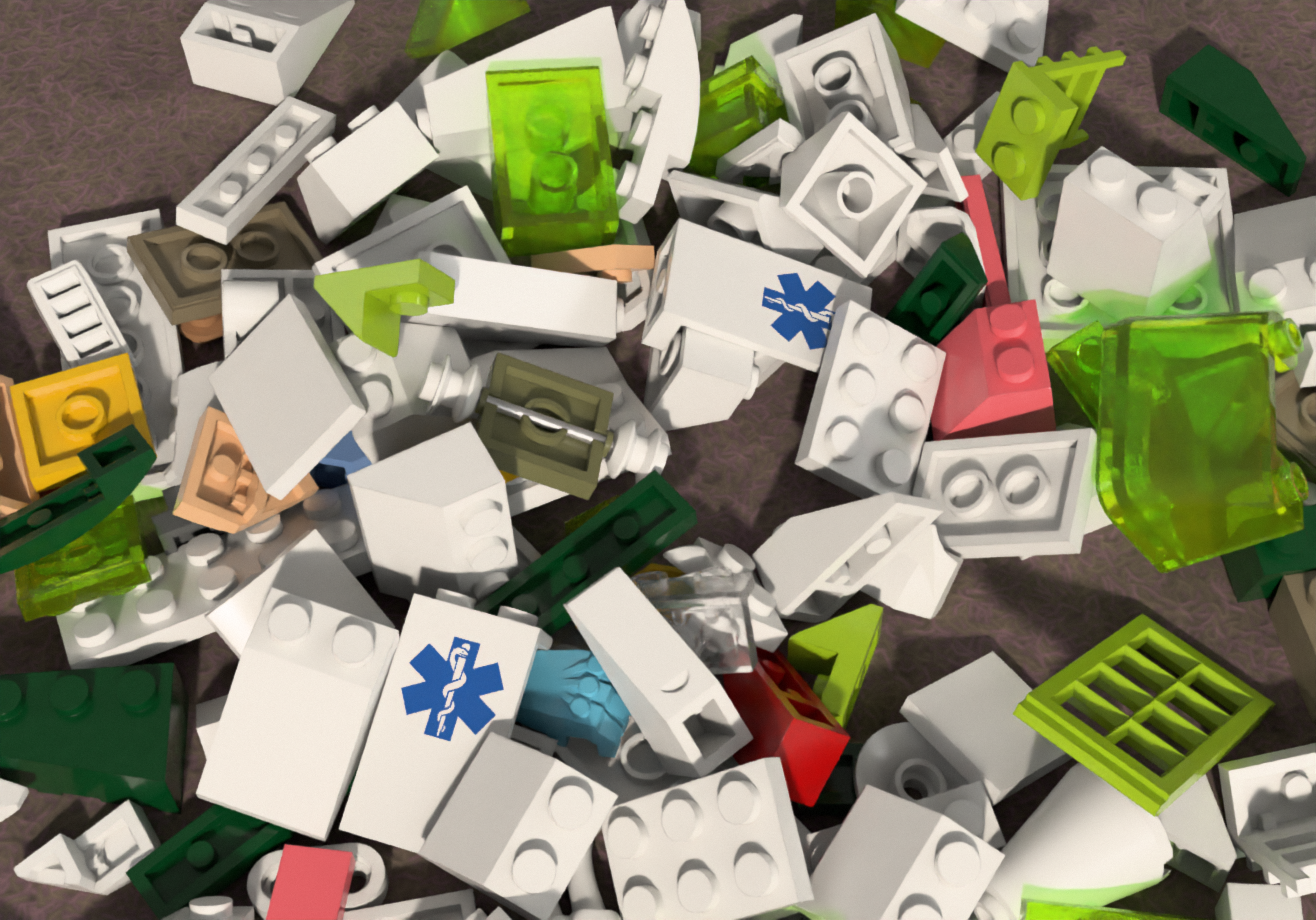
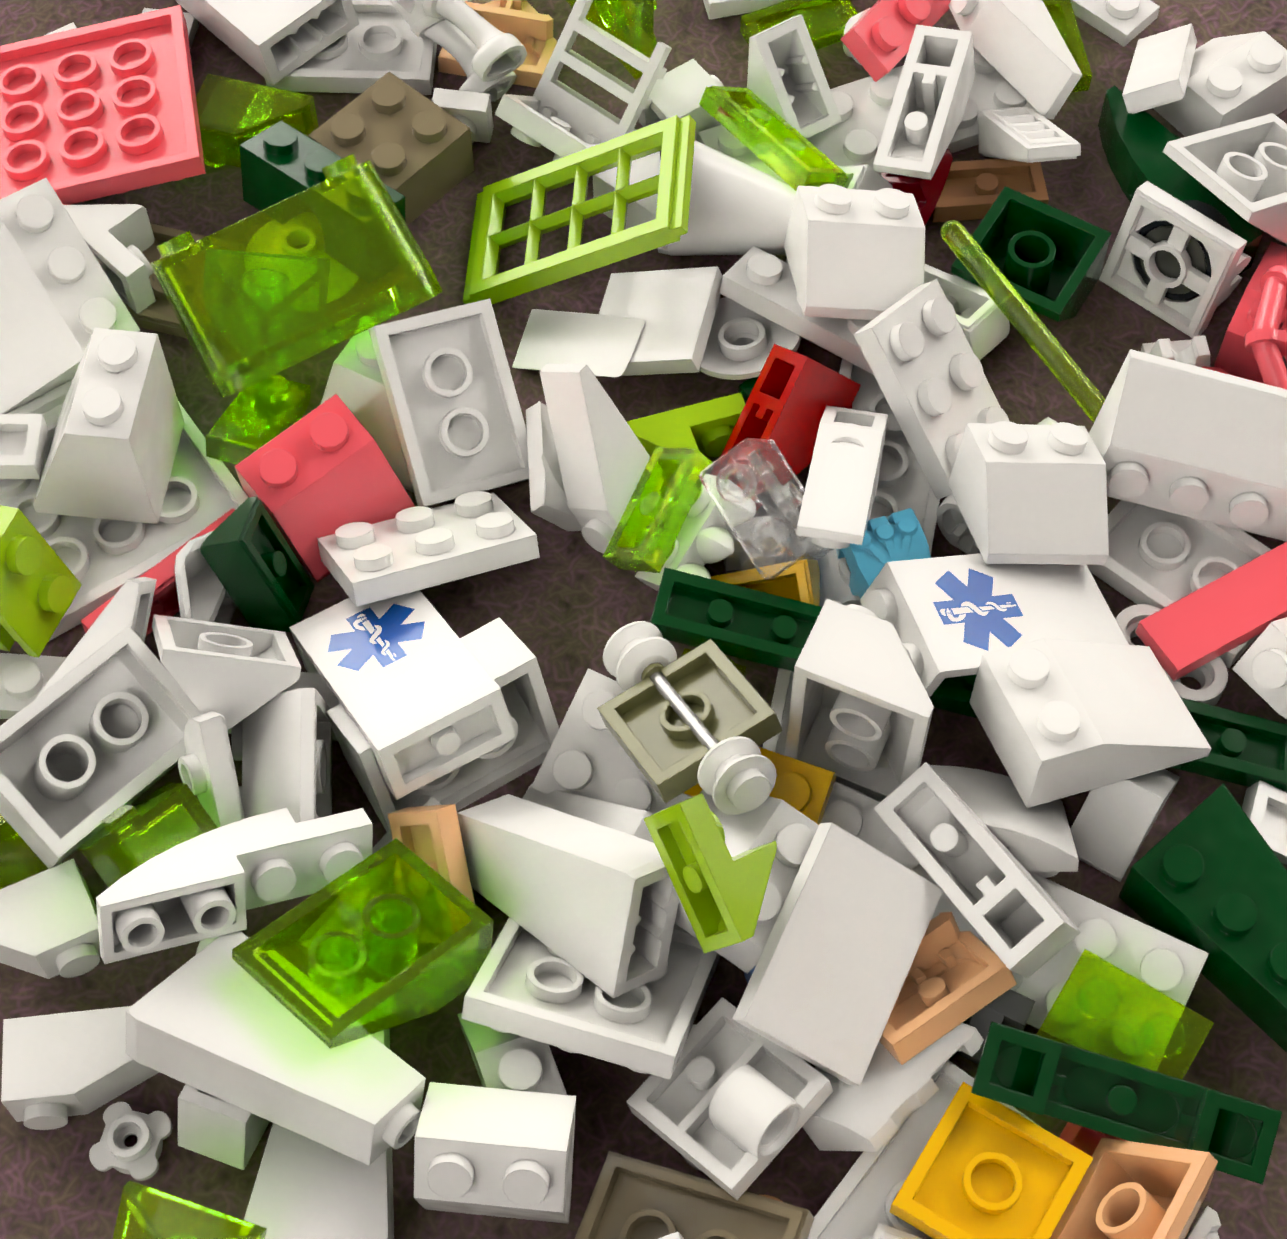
camera: 130 degrees left, 5 degrees up
(233, 523) = (977, 872): none -> white slope
(759, 548) = (657, 510): none -> clear neon green plate
(1013, 659) = (579, 338): none -> white sticker

